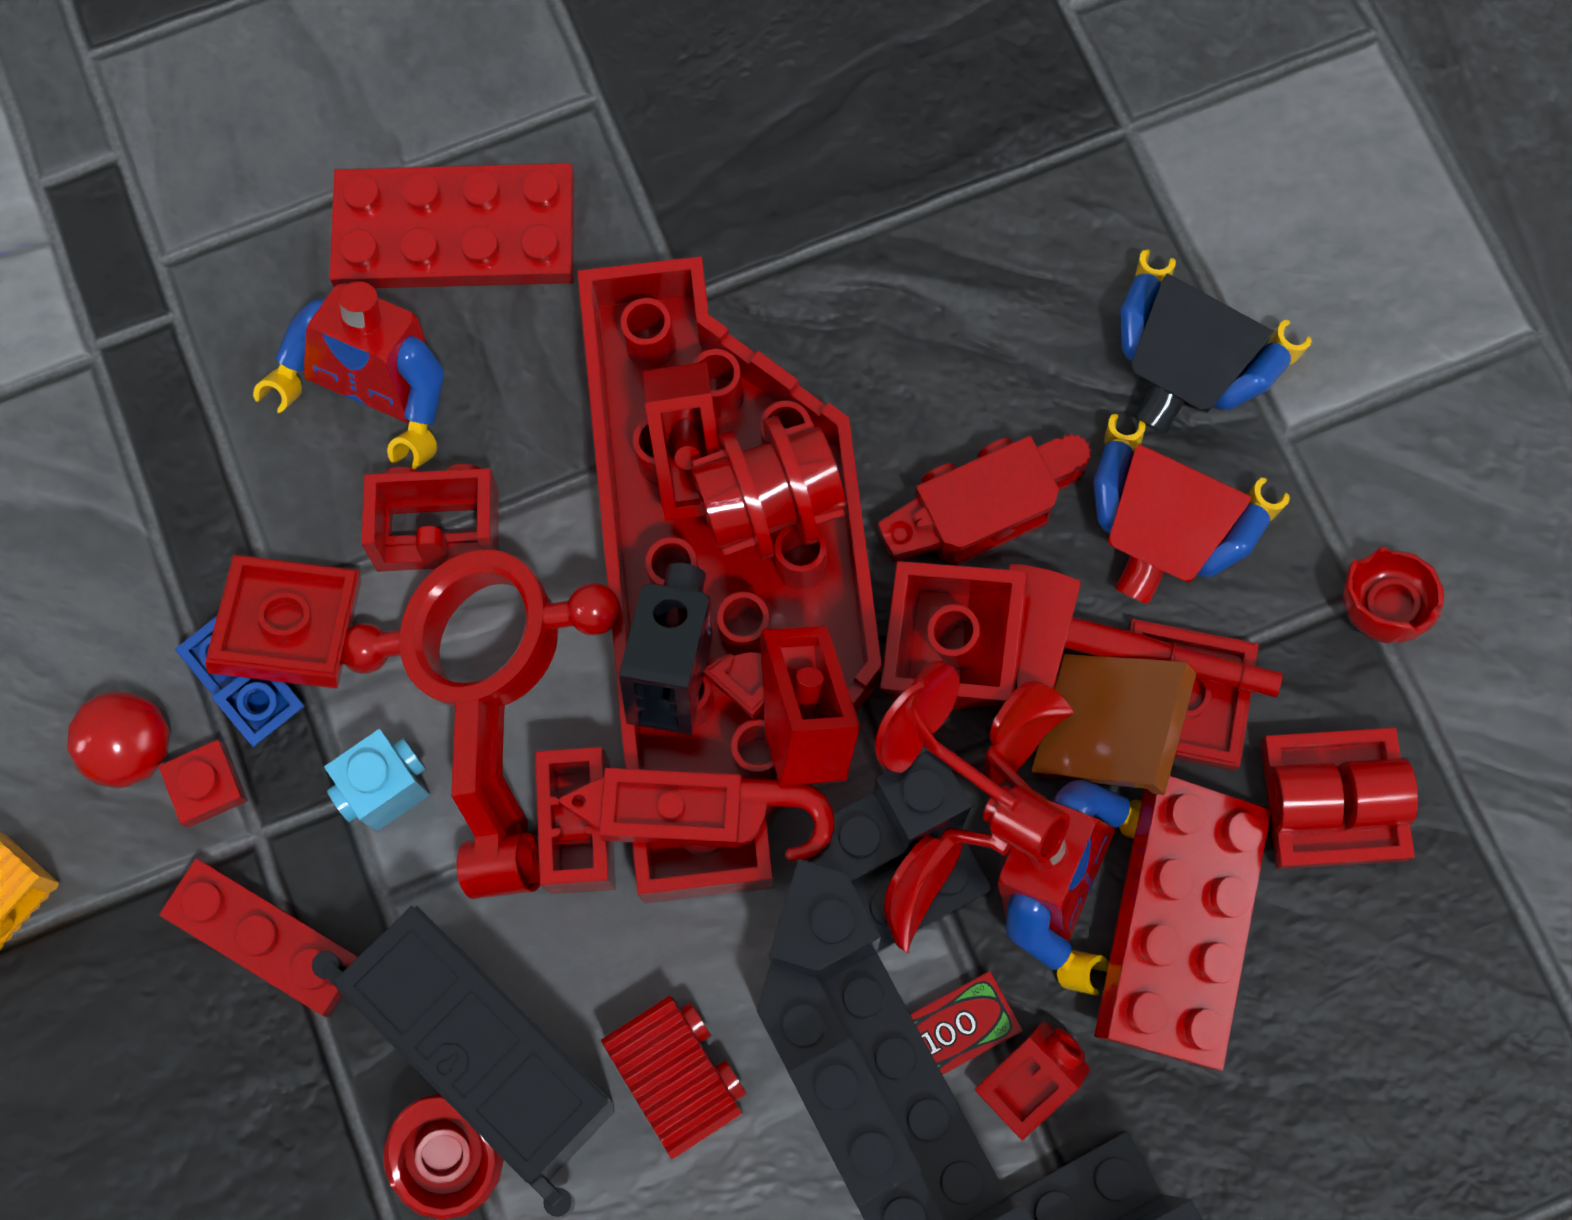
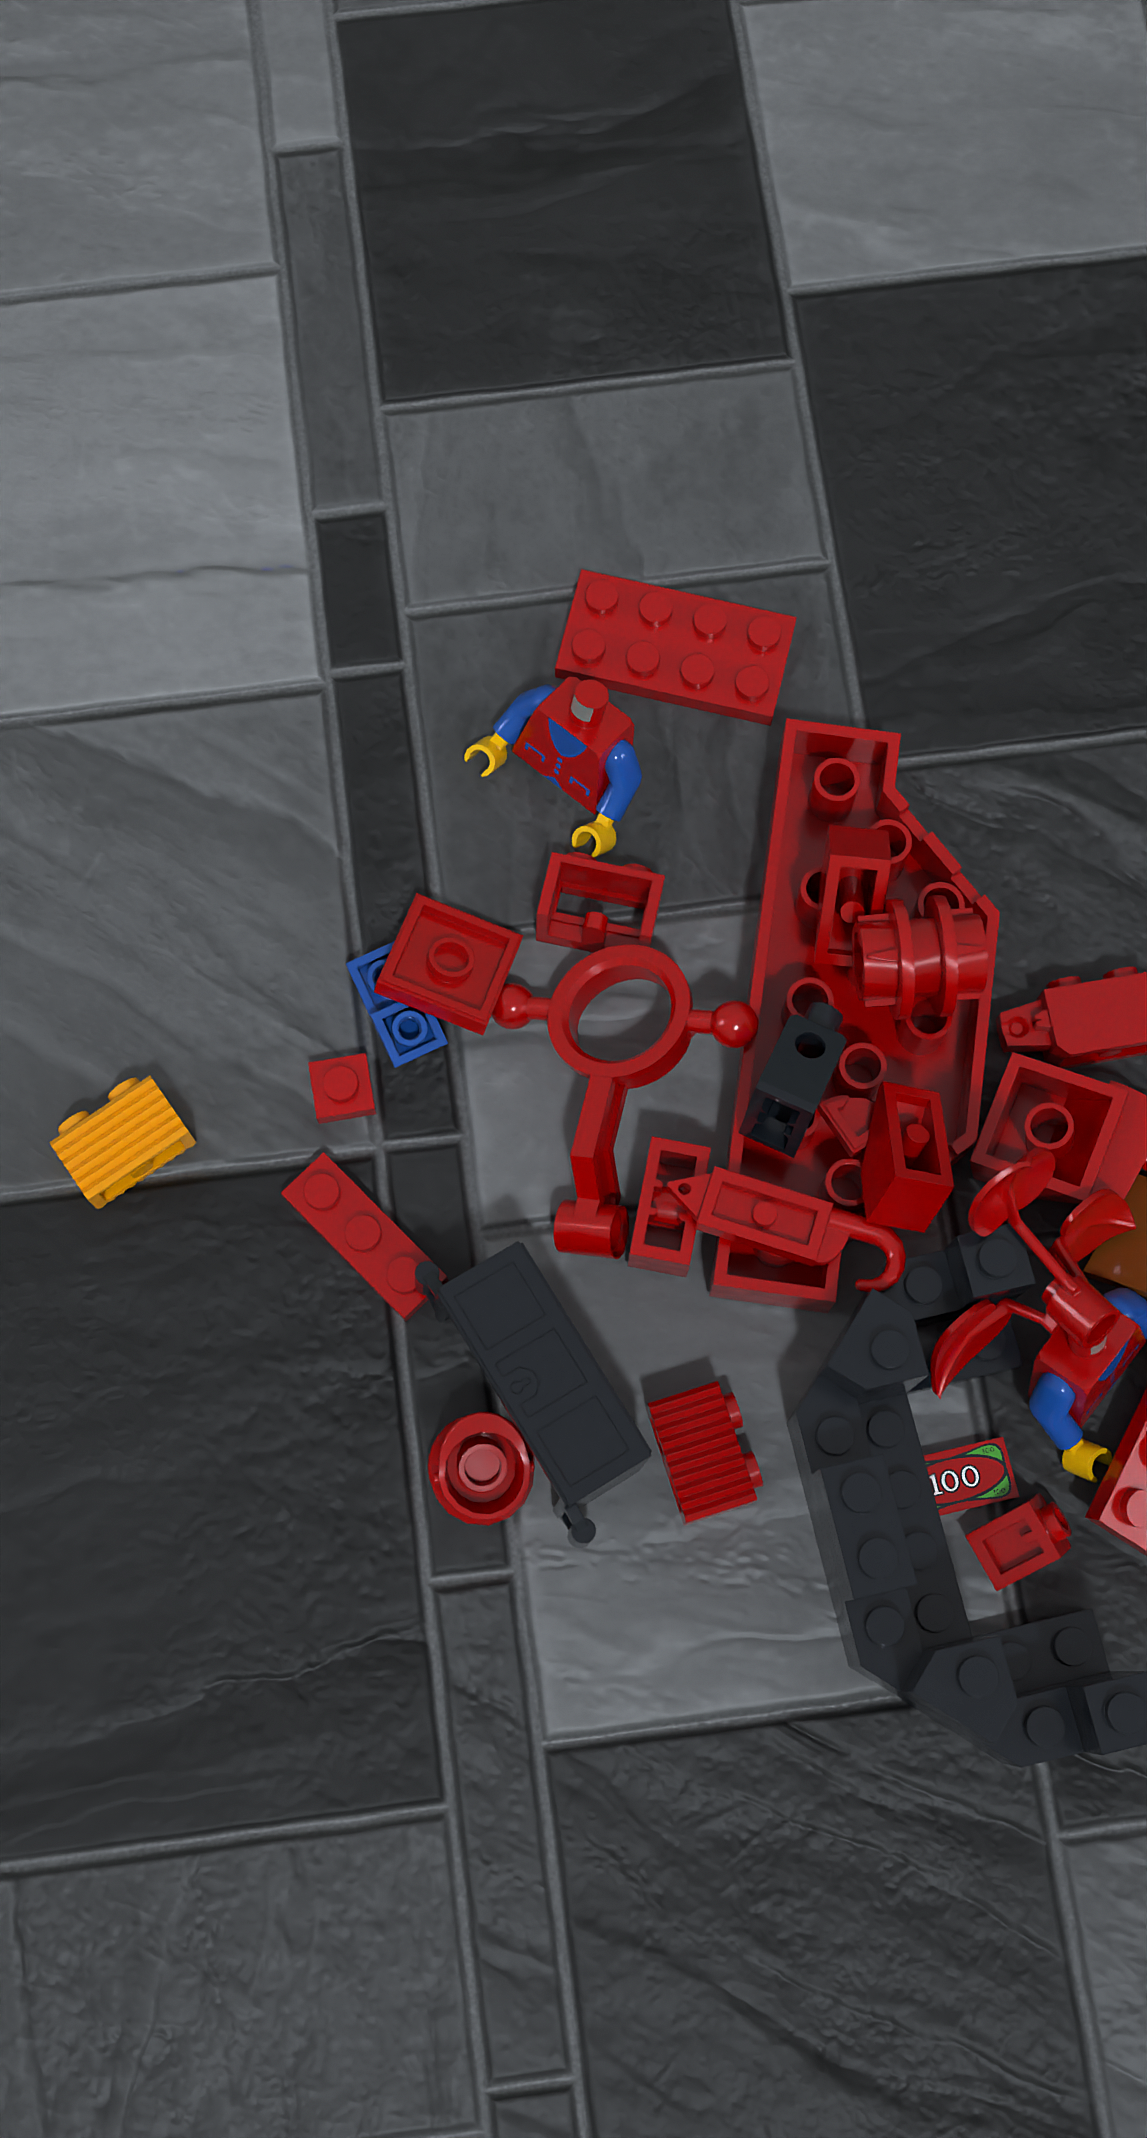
camera: 10 degrees right, 0 degrees up
(118, 739) = (277, 1030): red hair -> none
(376, 780) = (500, 1125): medium azure brick -> none

